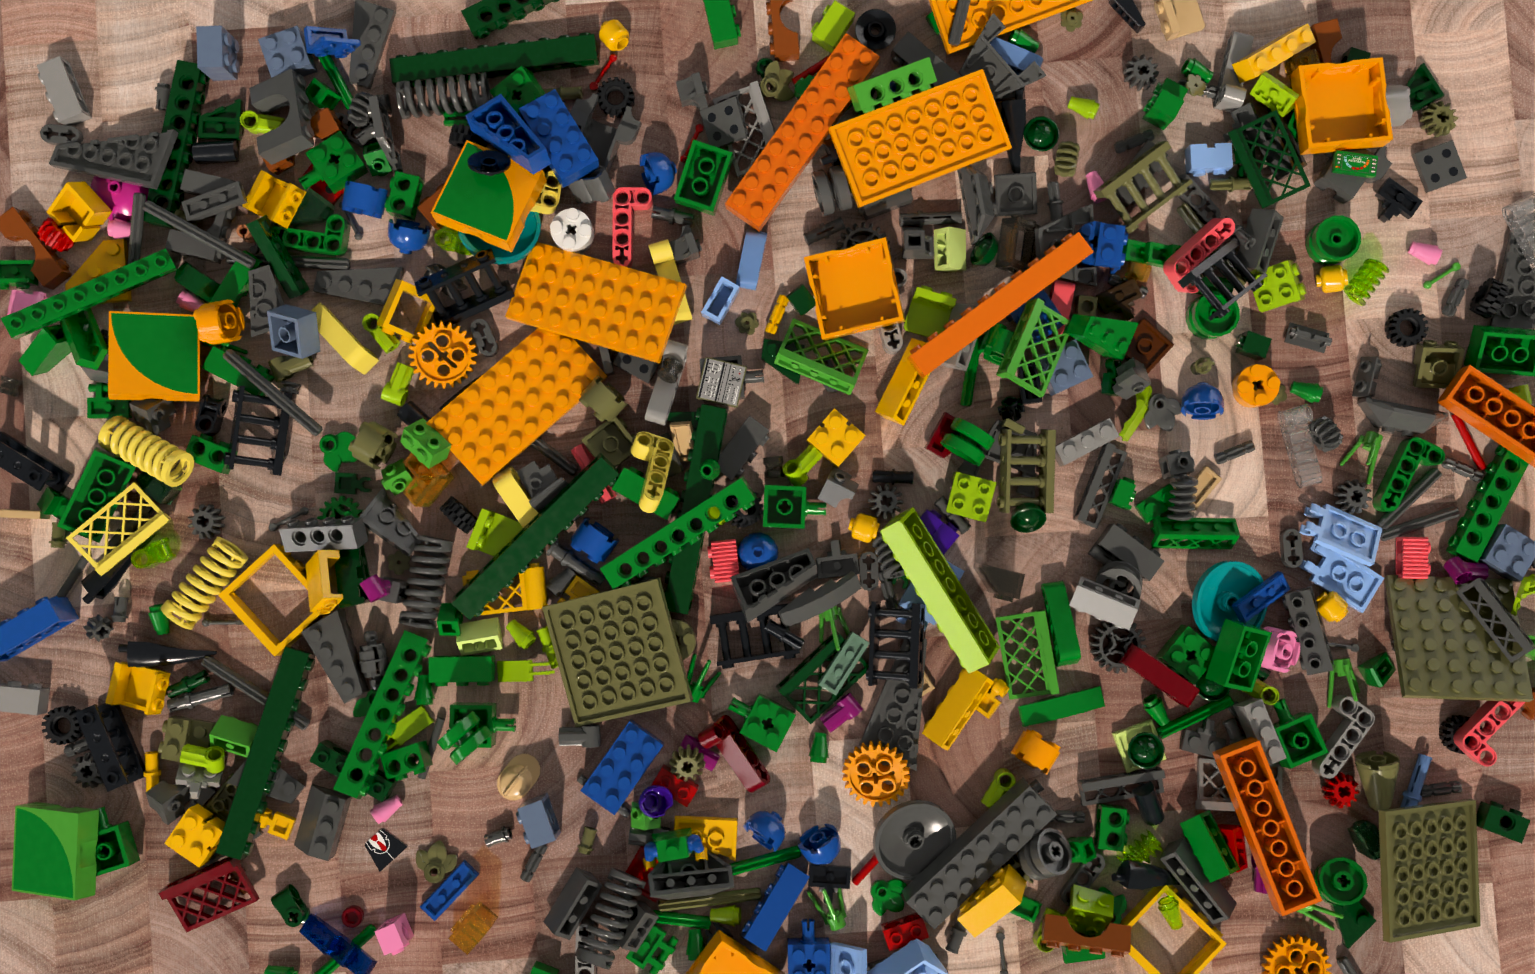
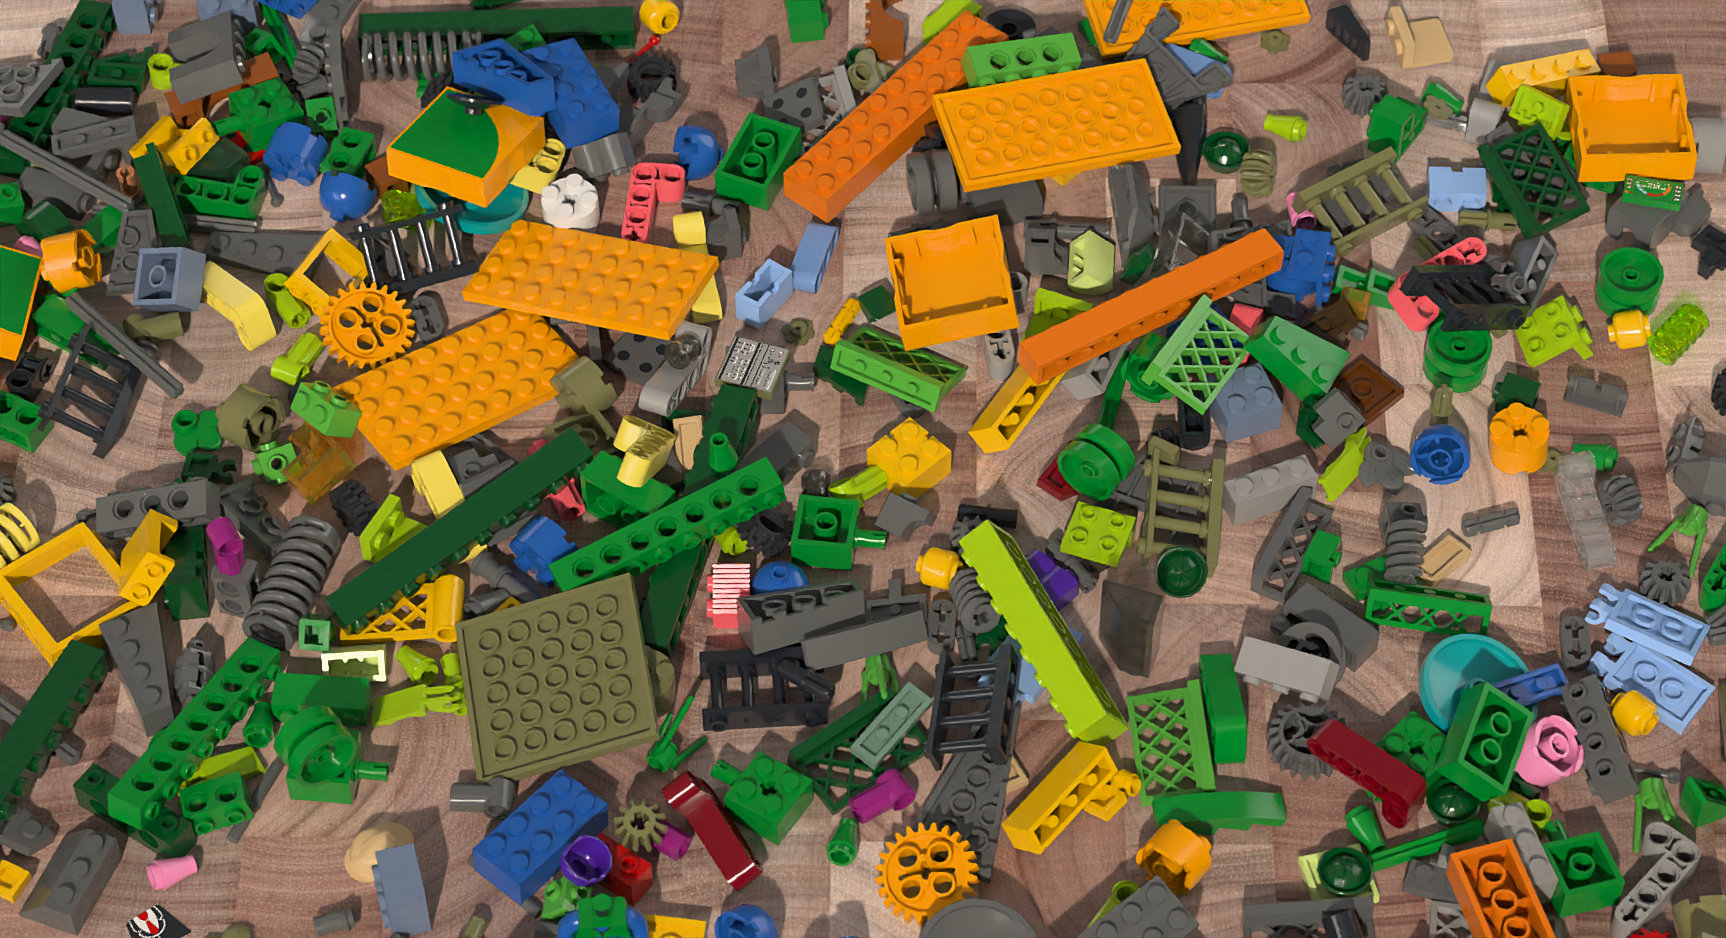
camera: 10 degrees right, 35 degrees down
(1256, 261) = (1512, 283): none -> dark grey pin

